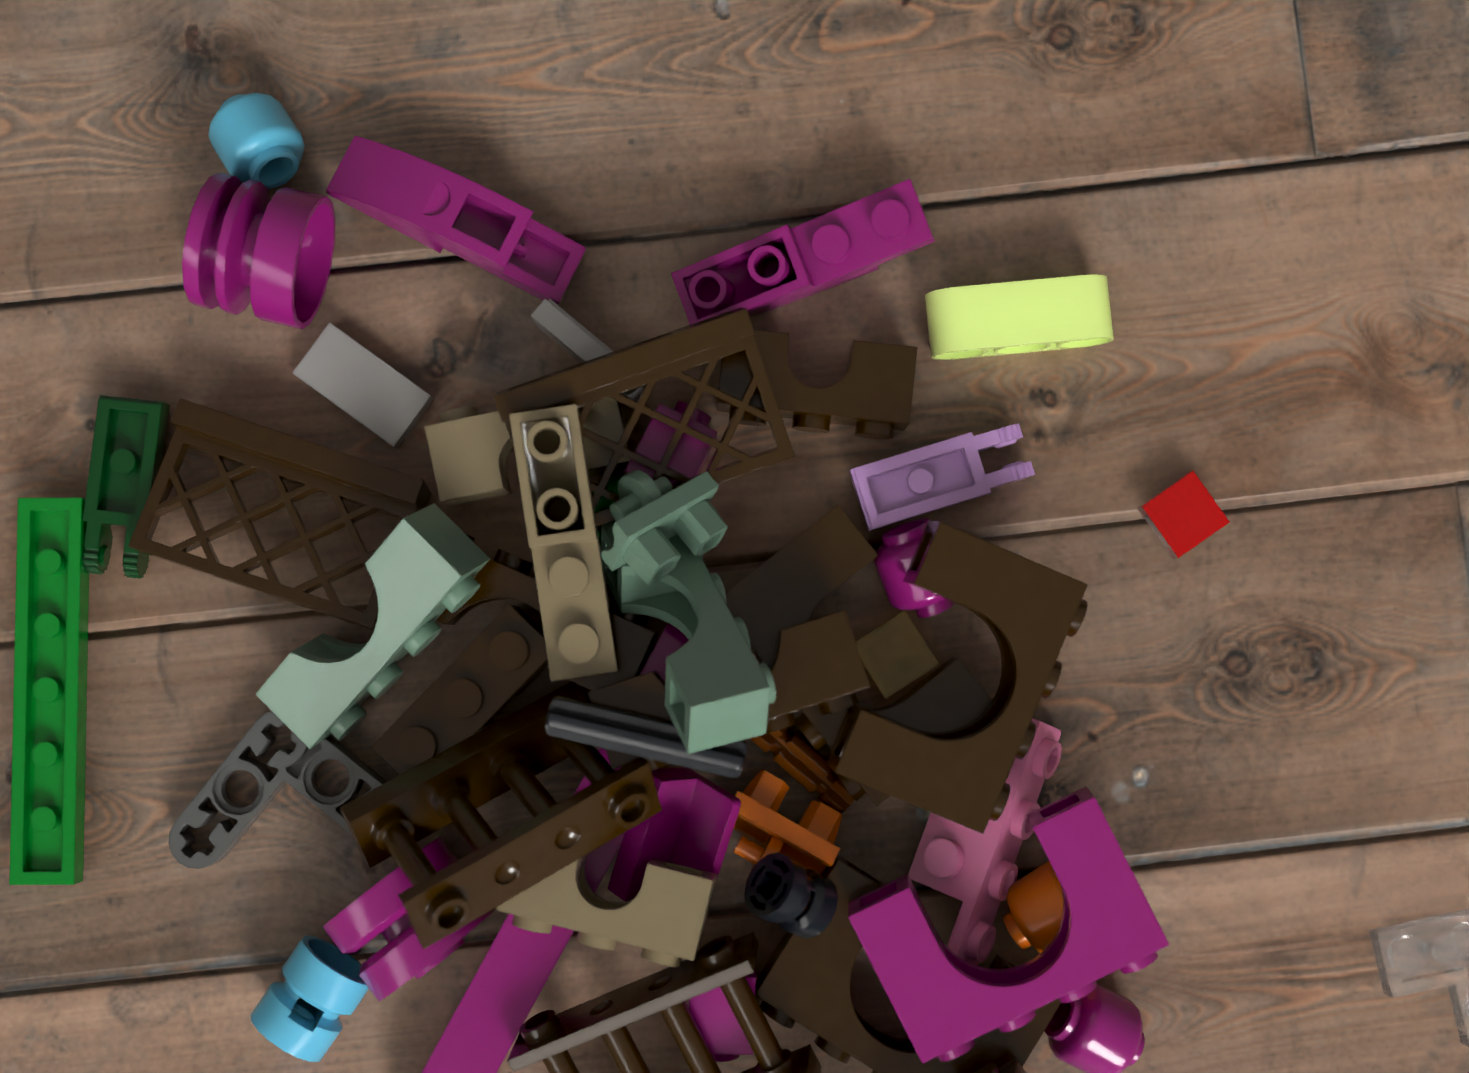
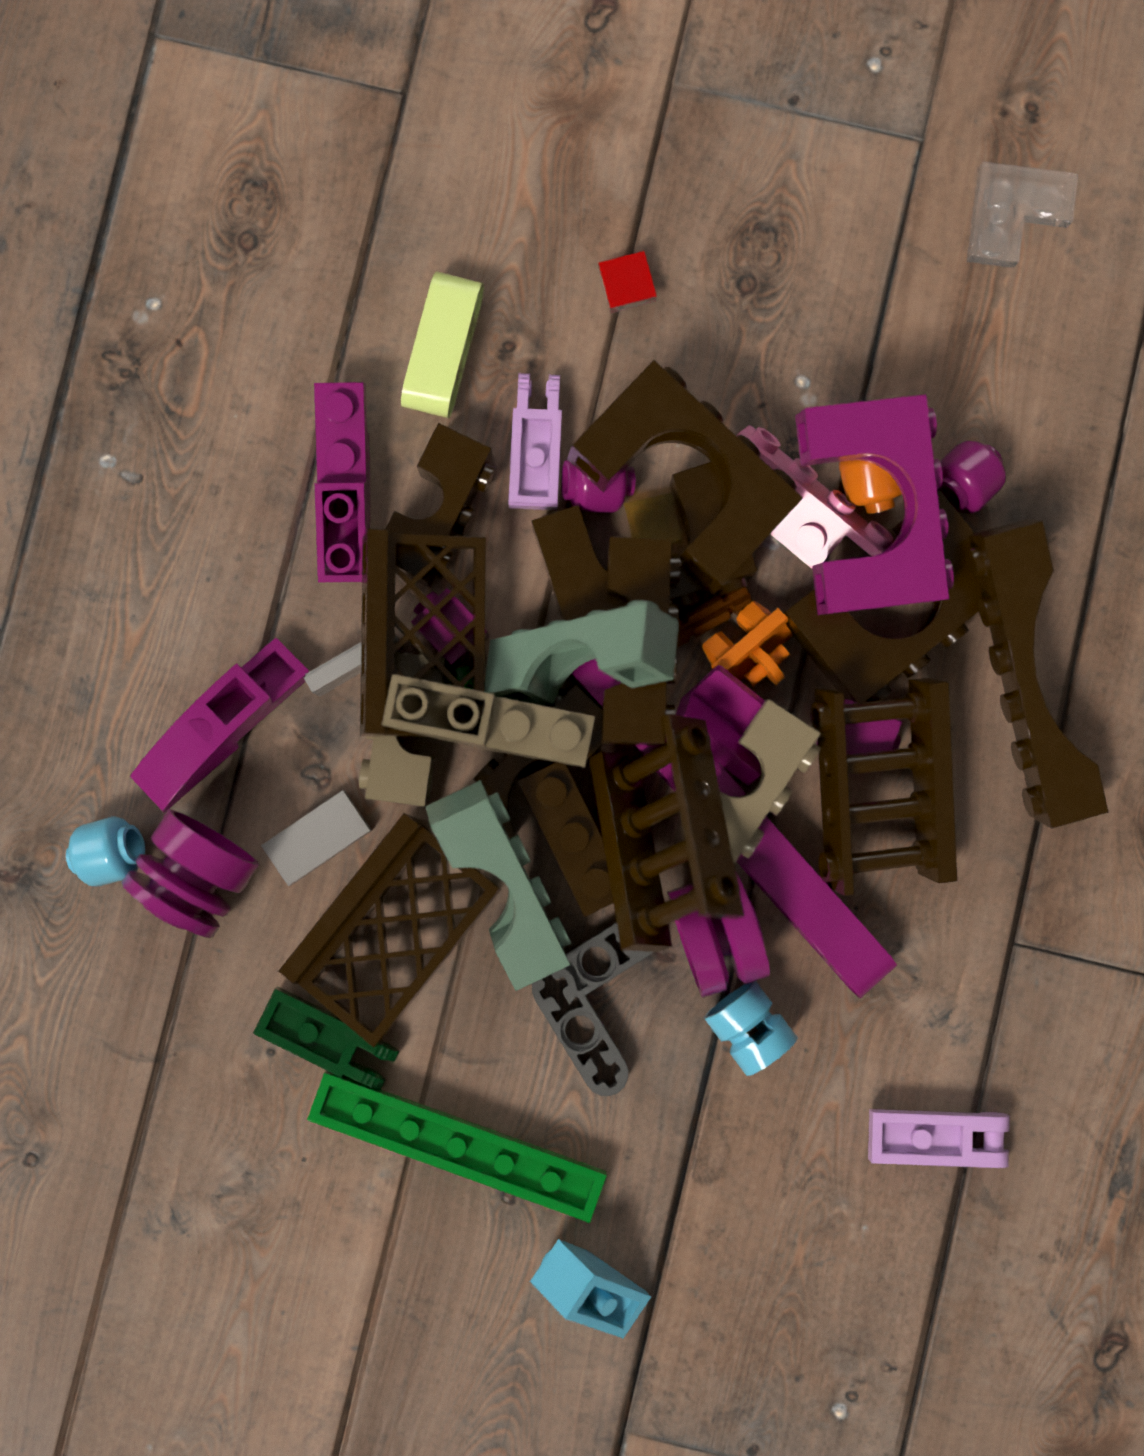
camera: 70 degrees left, 0 degrees up
(637, 736) = (647, 714): black axle -> none
(652, 514) = (492, 650): sand green hips -> none
(791, 895) = (798, 652): black wheel -> none

